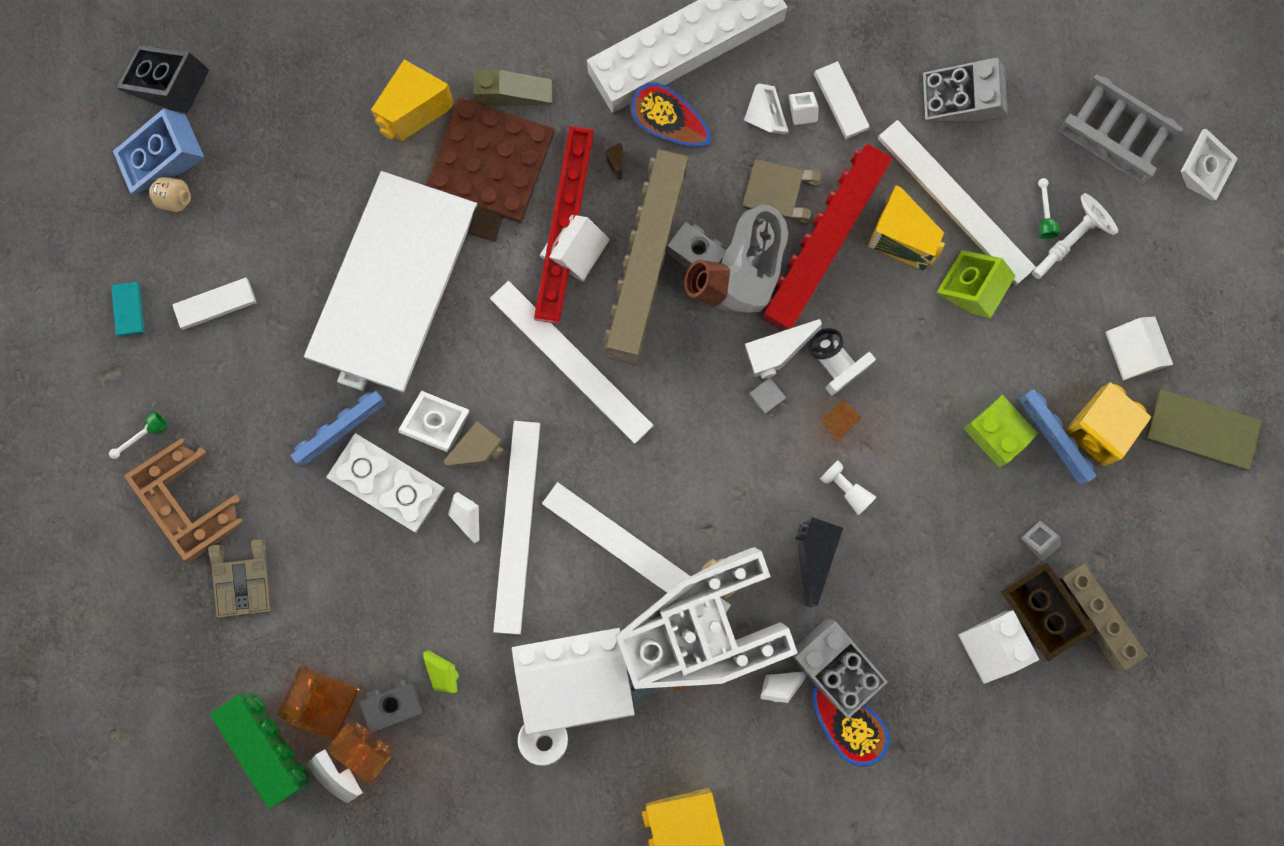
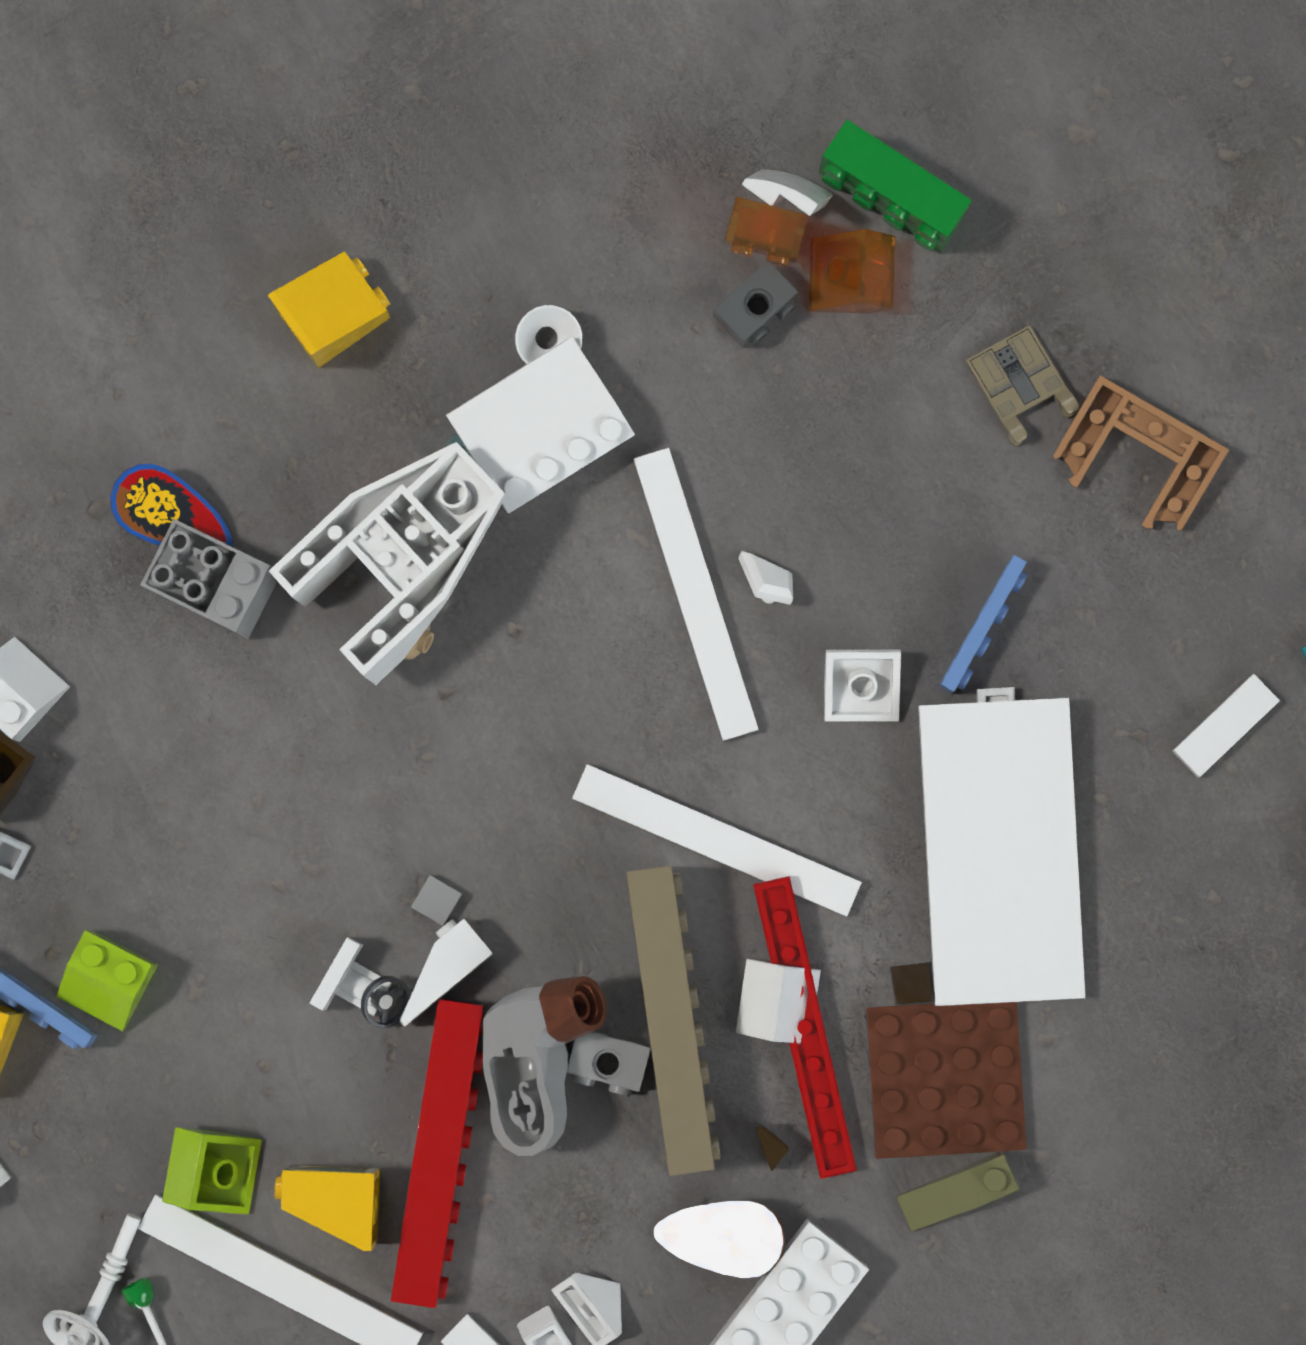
camera: 160 degrees right, 5 degrees up
(153, 424) = (1227, 533): hinge -> none
(385, 482) = (891, 581): white piece -> none
(410, 102) = (1086, 1108): yellow slope -> none
(441, 673) = (712, 370): lime piece -> none
(475, 448) = (791, 672): dark tan slope -> none
(616, 539) = (555, 627): white tile -> none
(779, 187) = (536, 1197): dark tan flag -> none
(782, 686) = (273, 527): white piece -> none
(816, 552) = (292, 715): black slope -> none
(840, 419) = (326, 903): clear orange panel -> none
(855, 495) = (269, 812): white piece -> none

